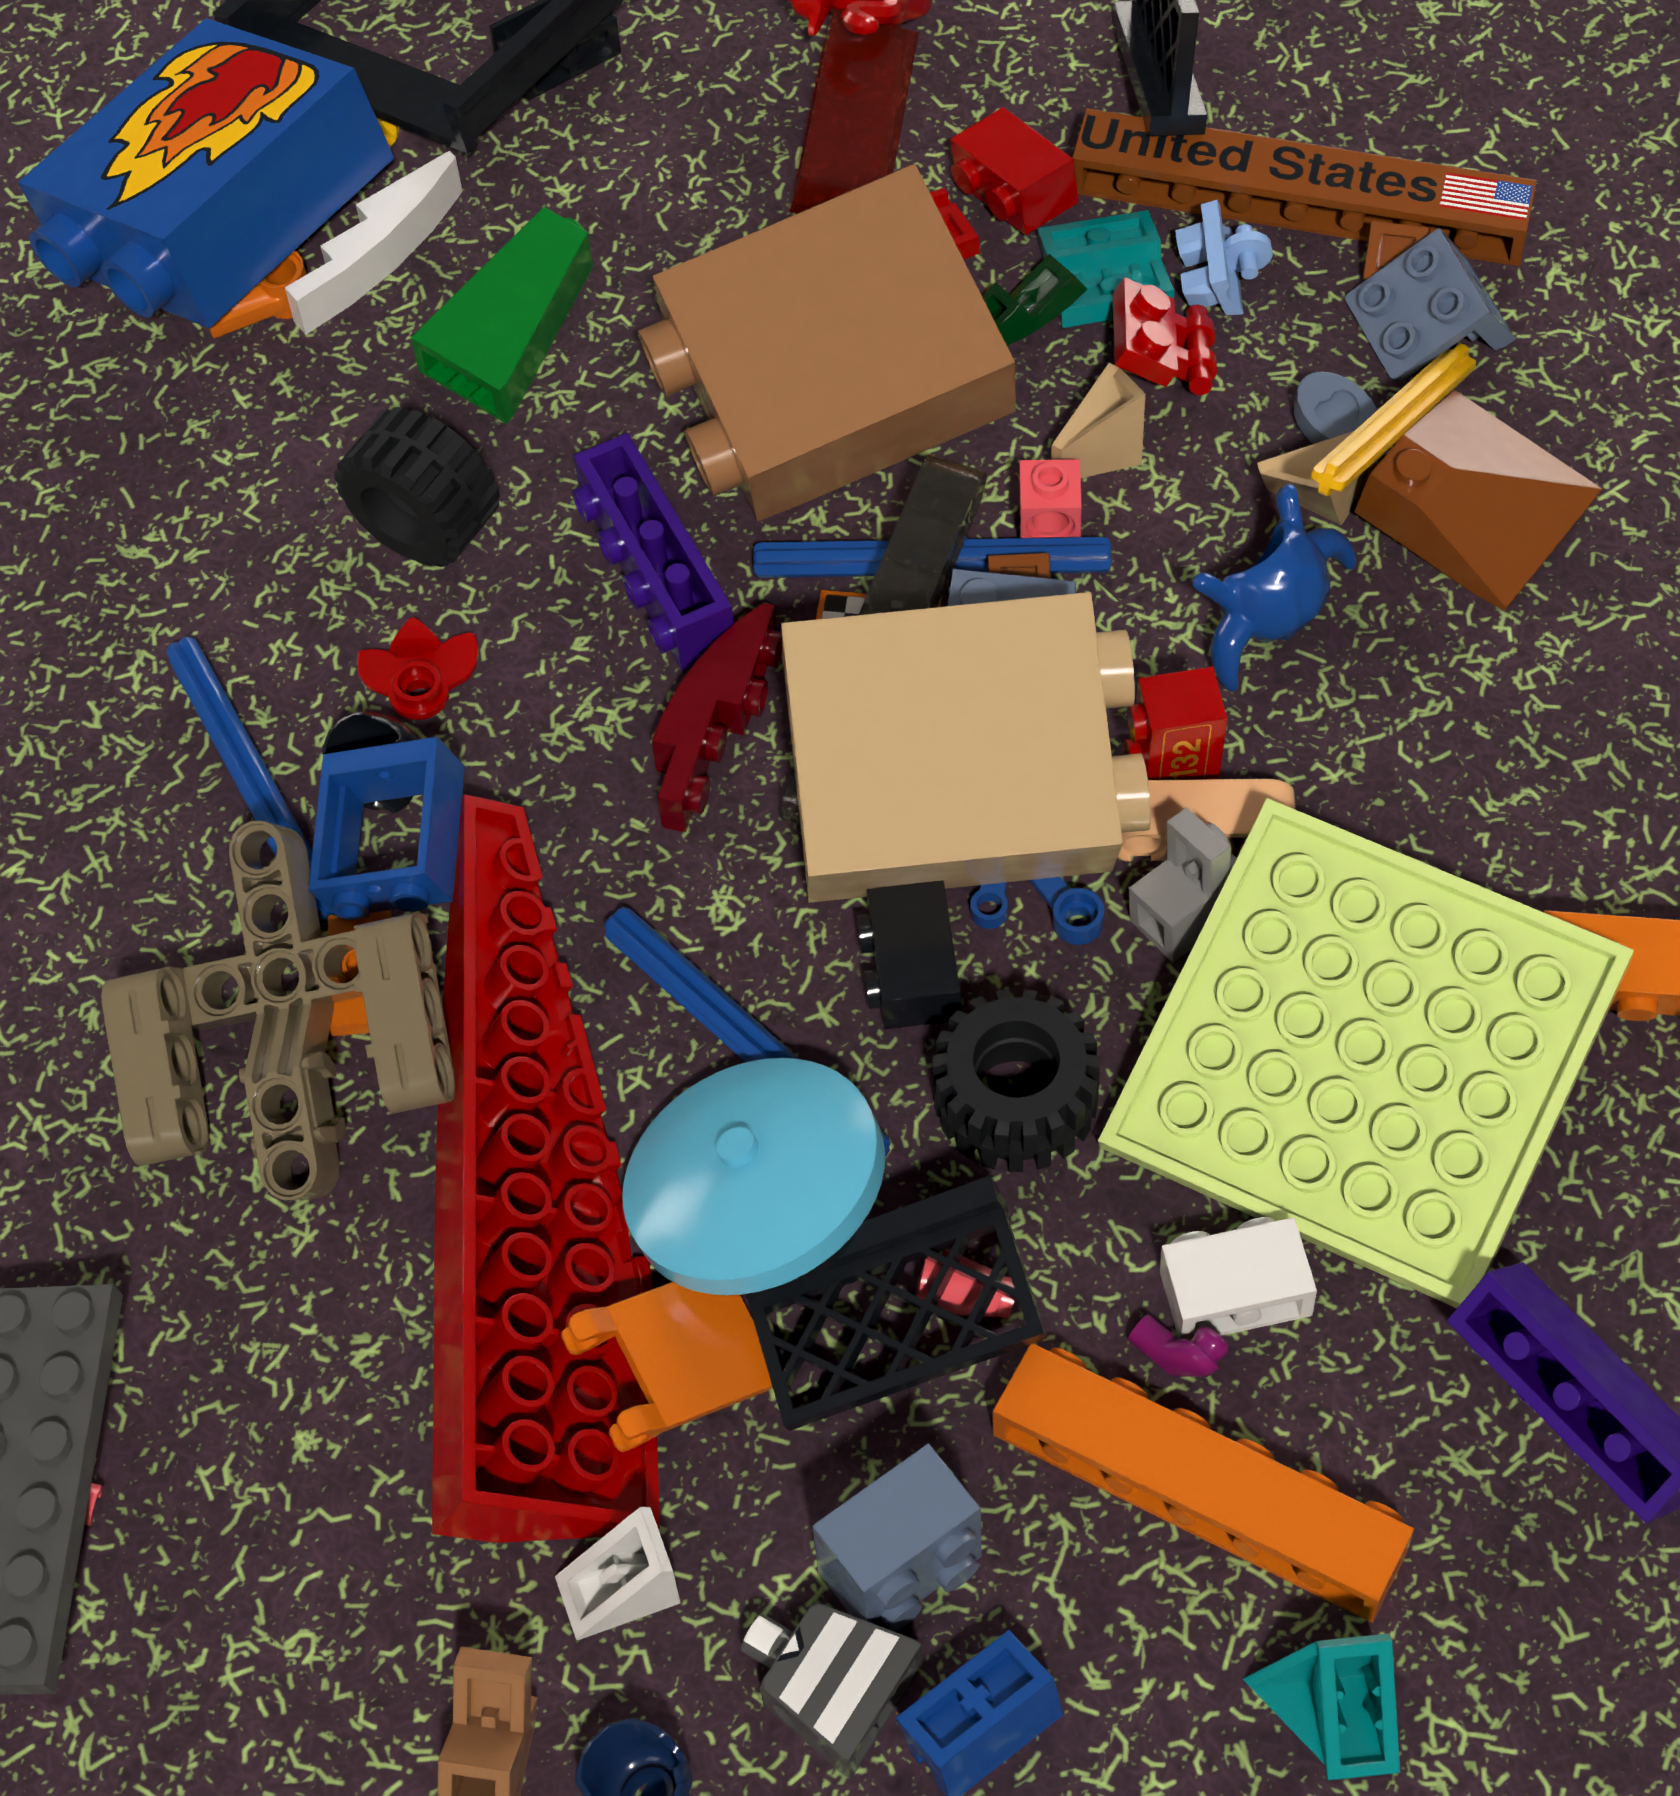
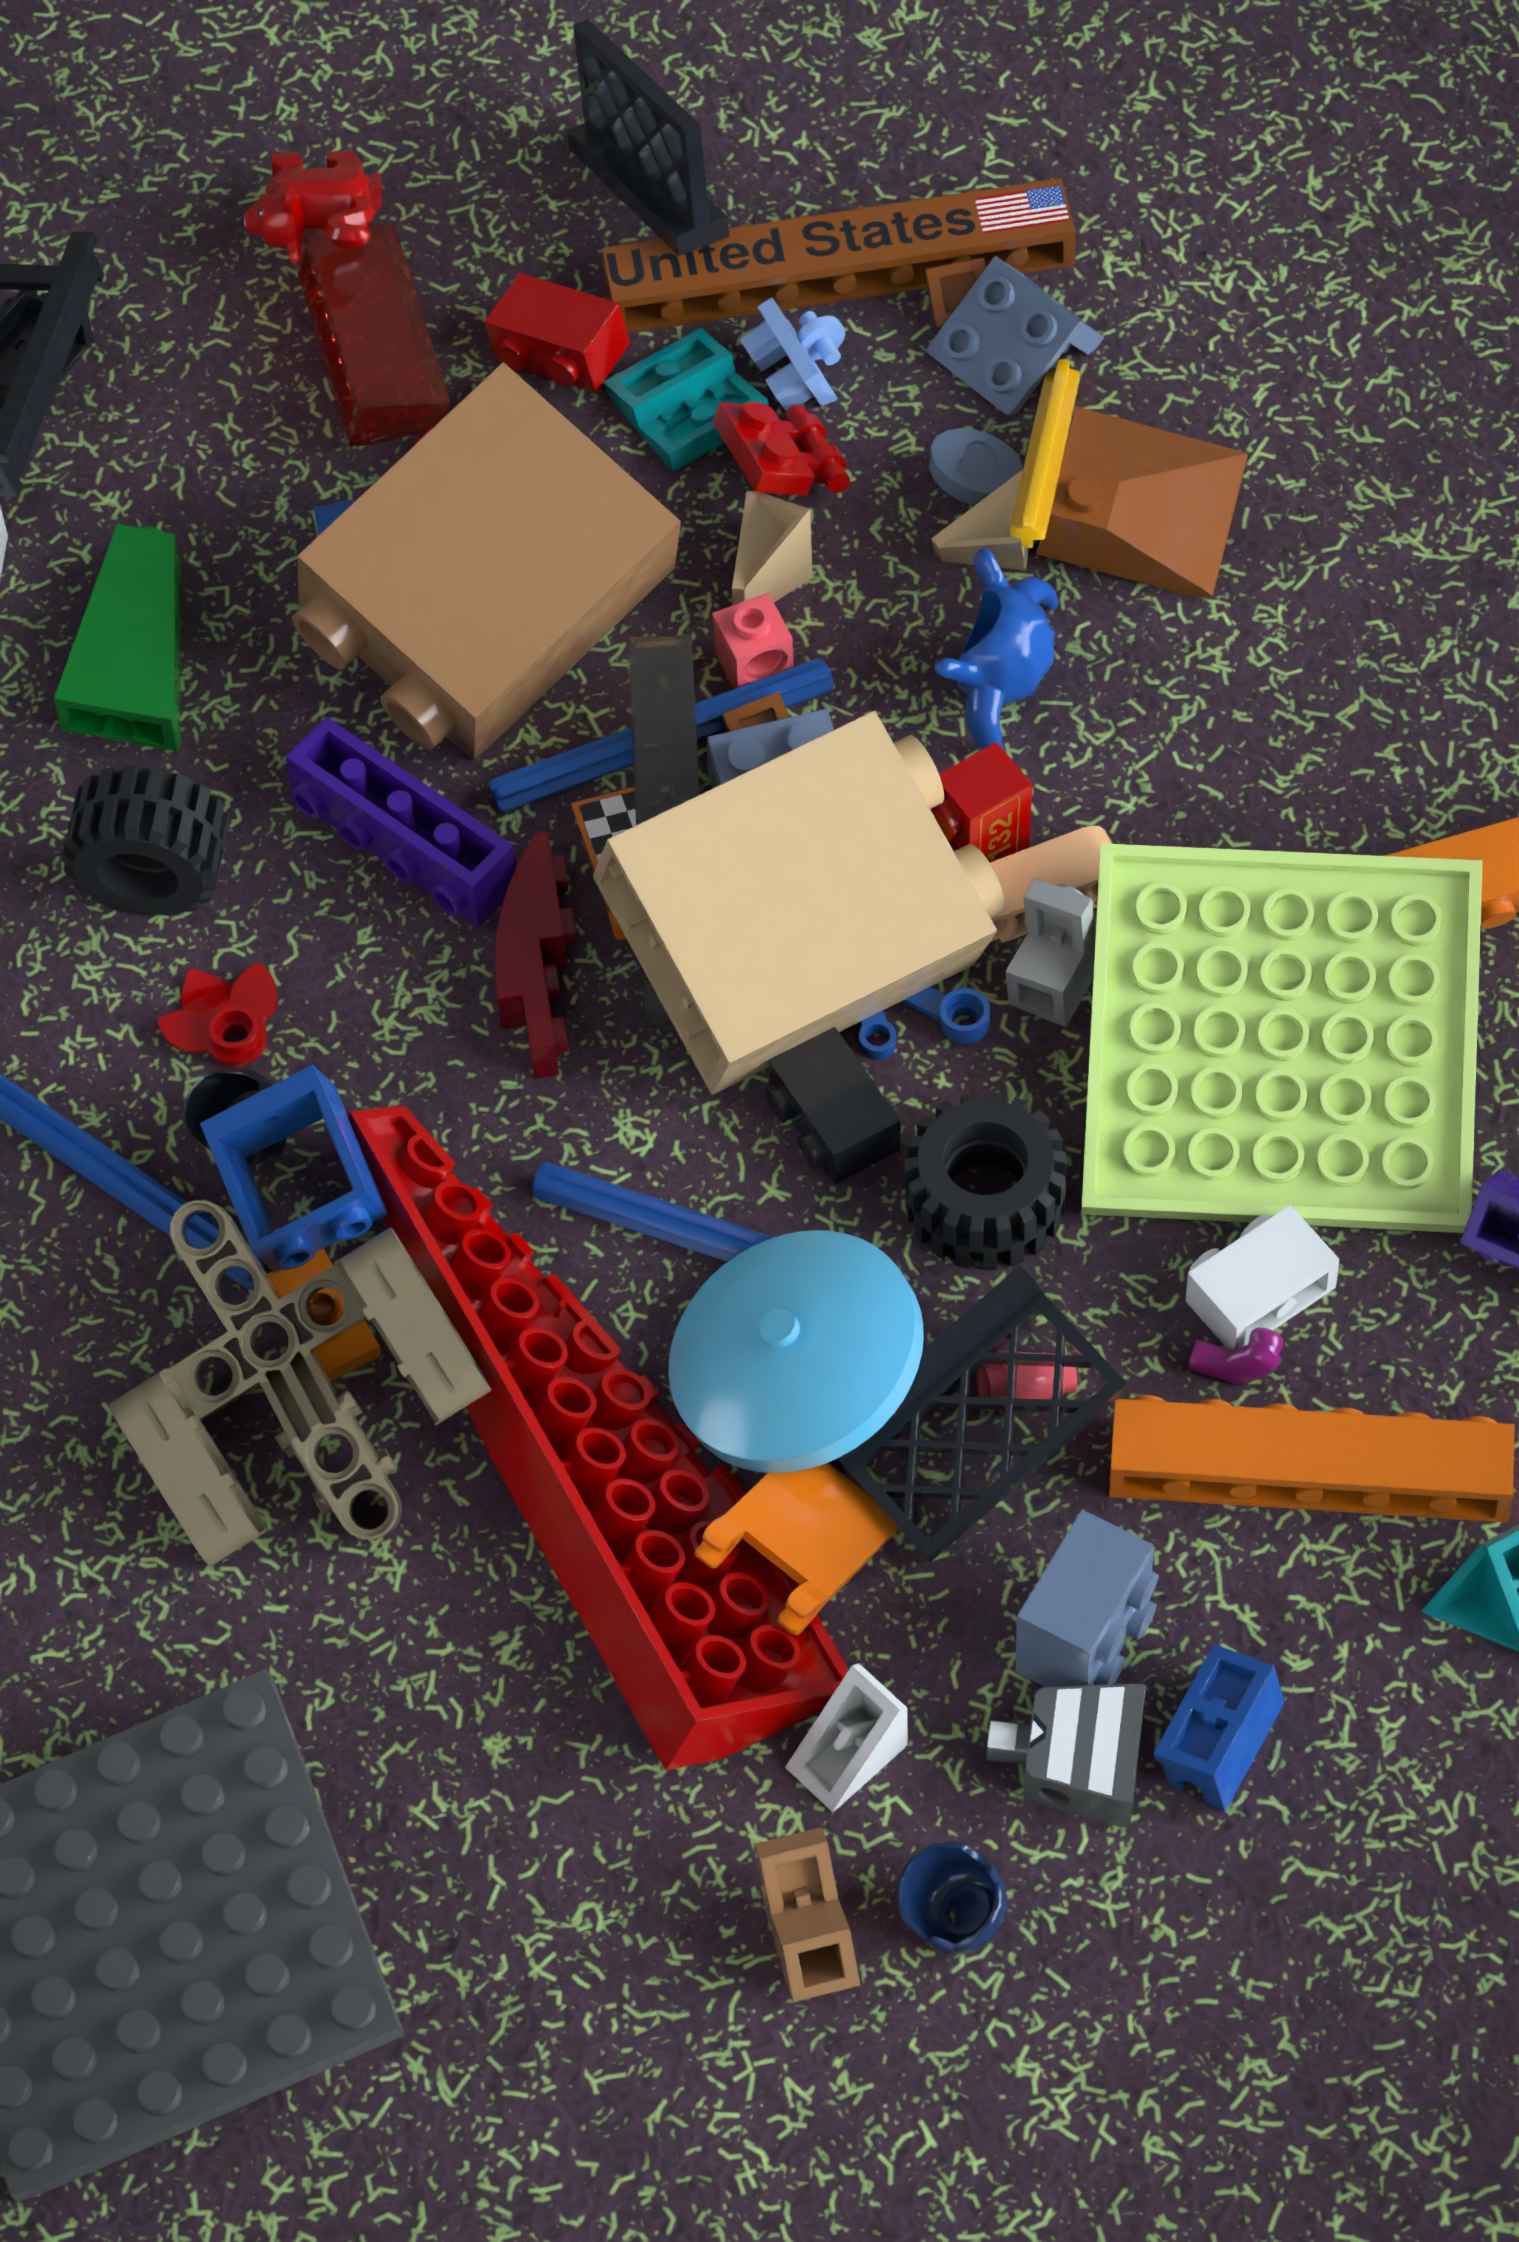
camera: 25 degrees left, 0 degrees up
(1035, 301) = (646, 444): dark green slope -> none

